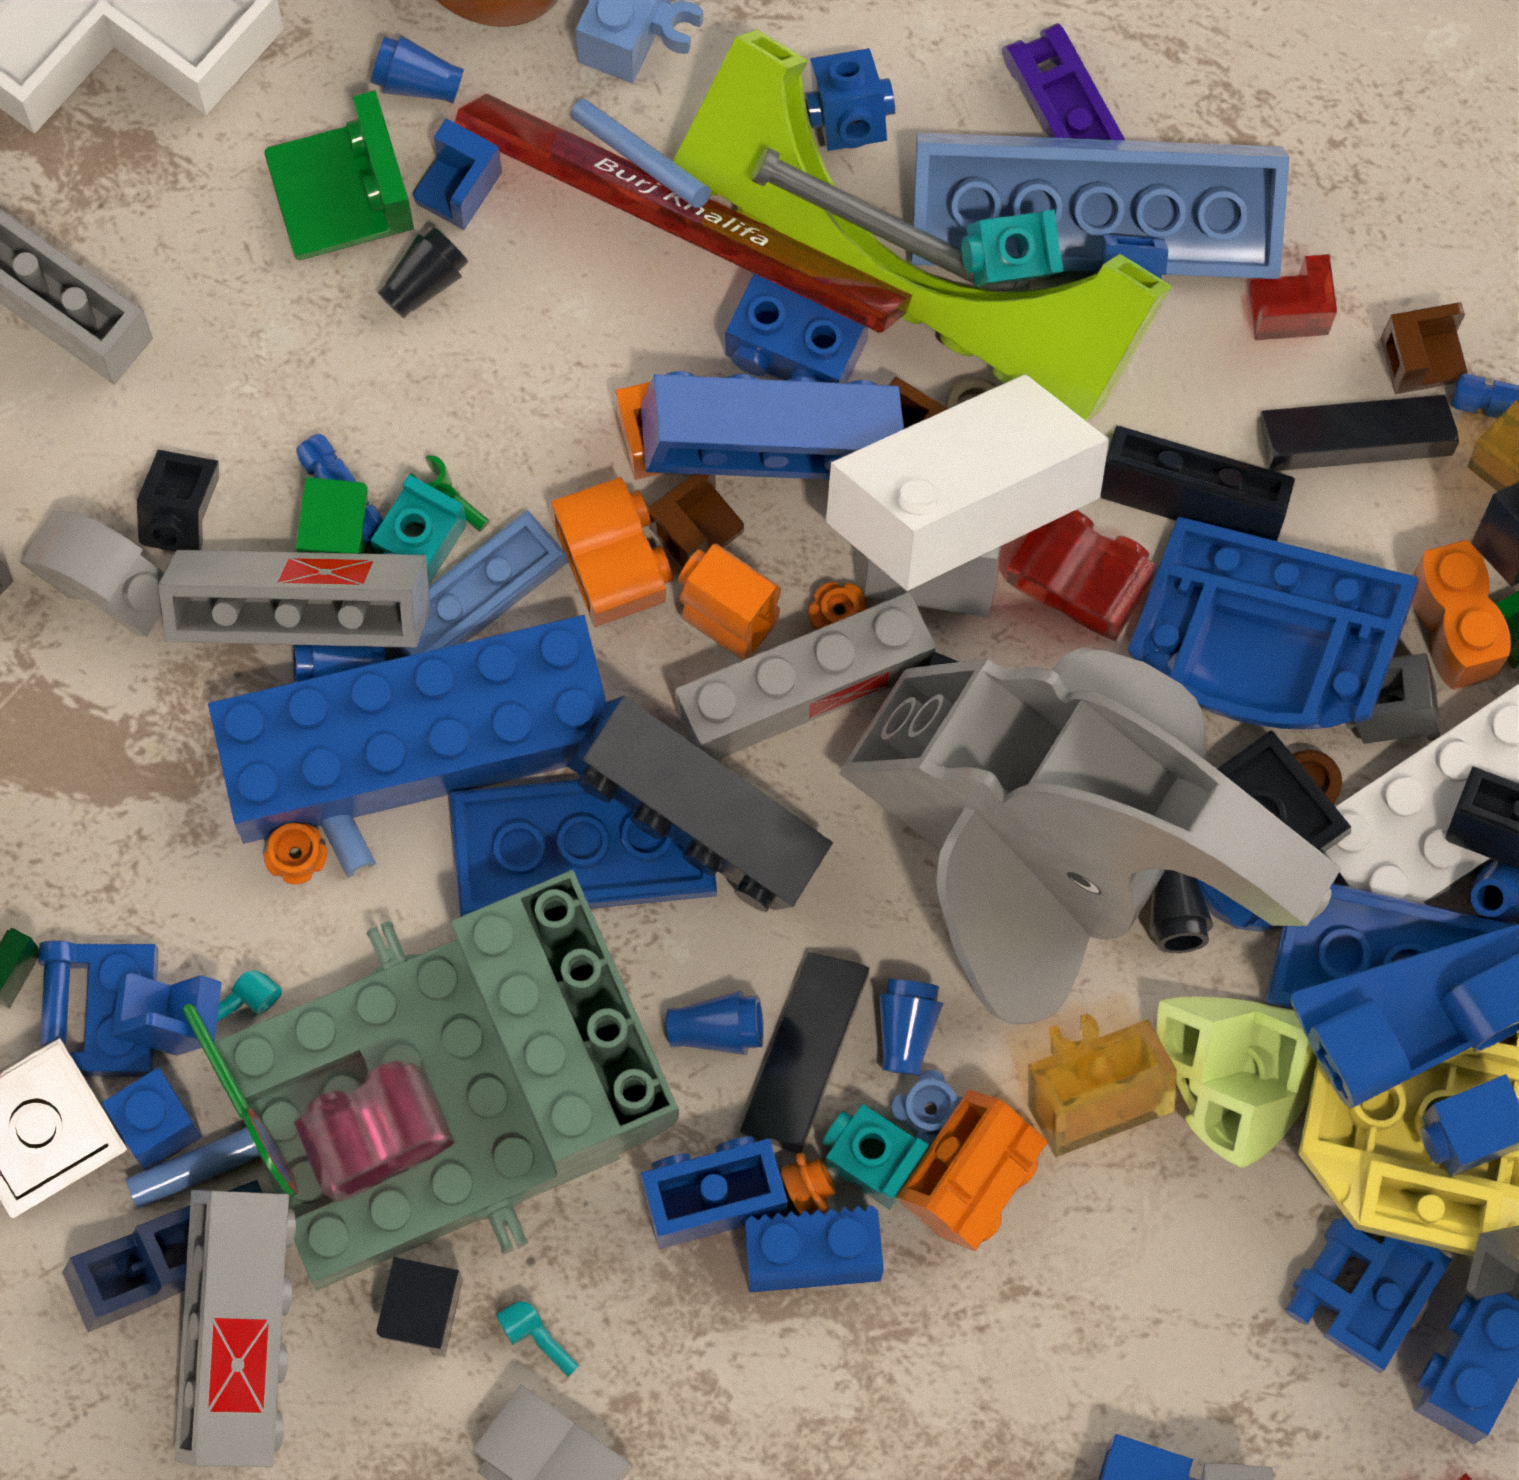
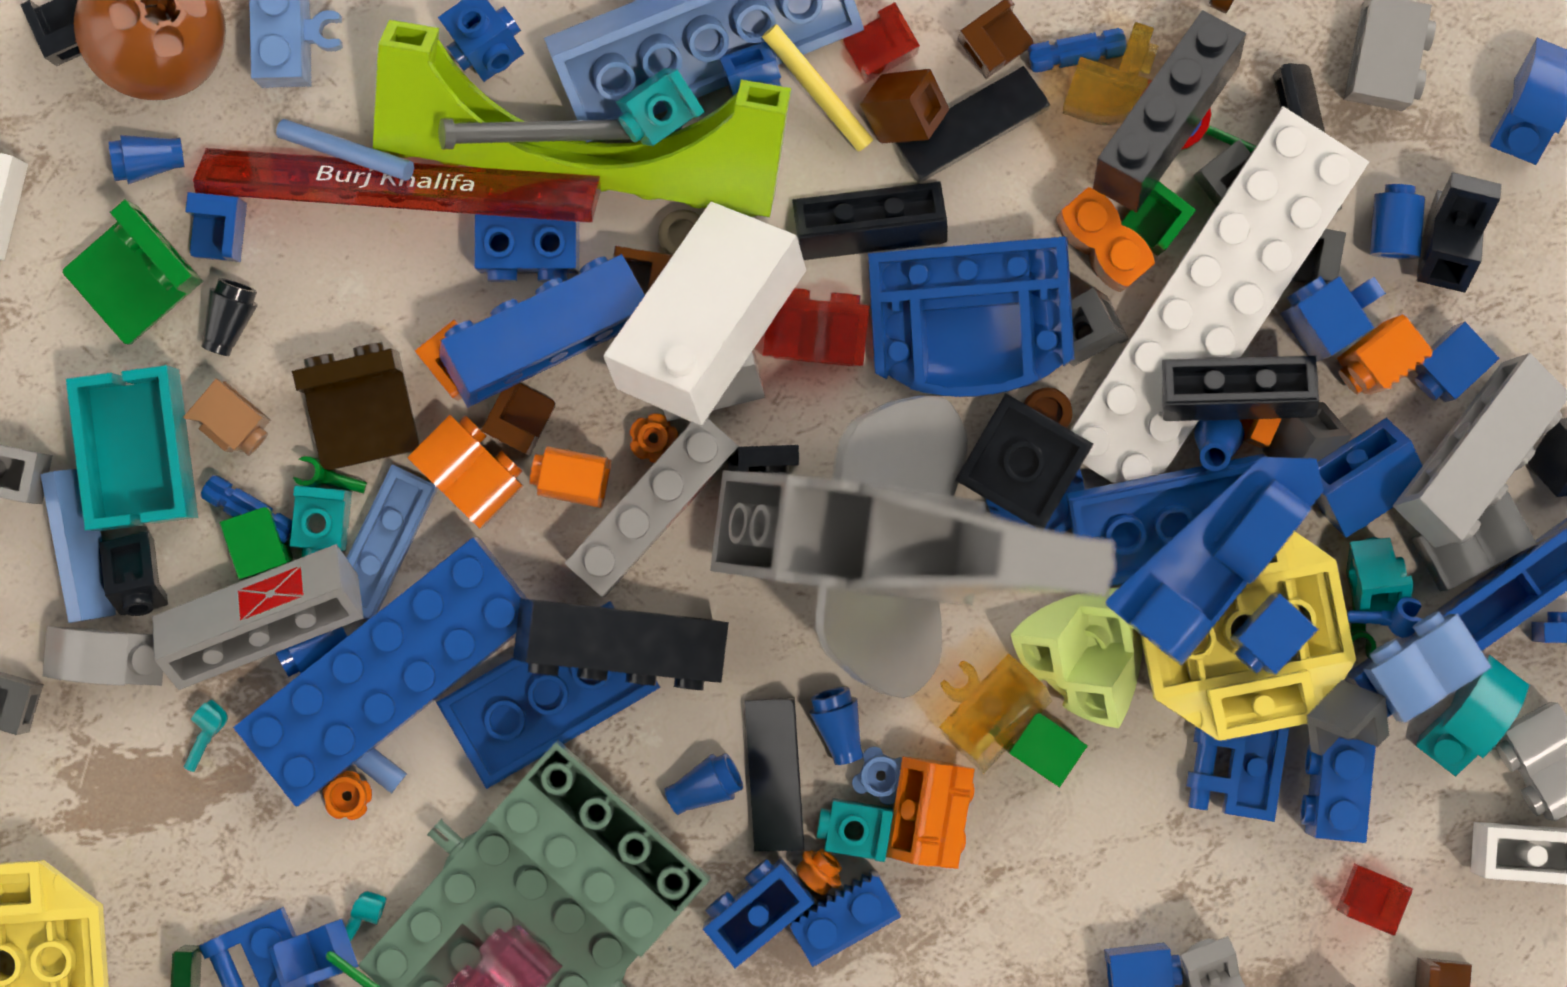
camera: 20 degrees left, 15 degrees up
(132, 437) = (75, 549): none -> medium blue tile
(183, 702) = (211, 720): none -> teal hand
(247, 360) = (131, 448): none -> teal piece
(369, 379) = (229, 419): none -> medium nougat window
(521, 425) = (358, 406): none -> dark brown bracket
(1143, 1160) = (1047, 749): none -> green panel
(1199, 313) = (817, 87): none -> light yellow bar
(1290, 376) = (904, 106): none -> reddish brown panel

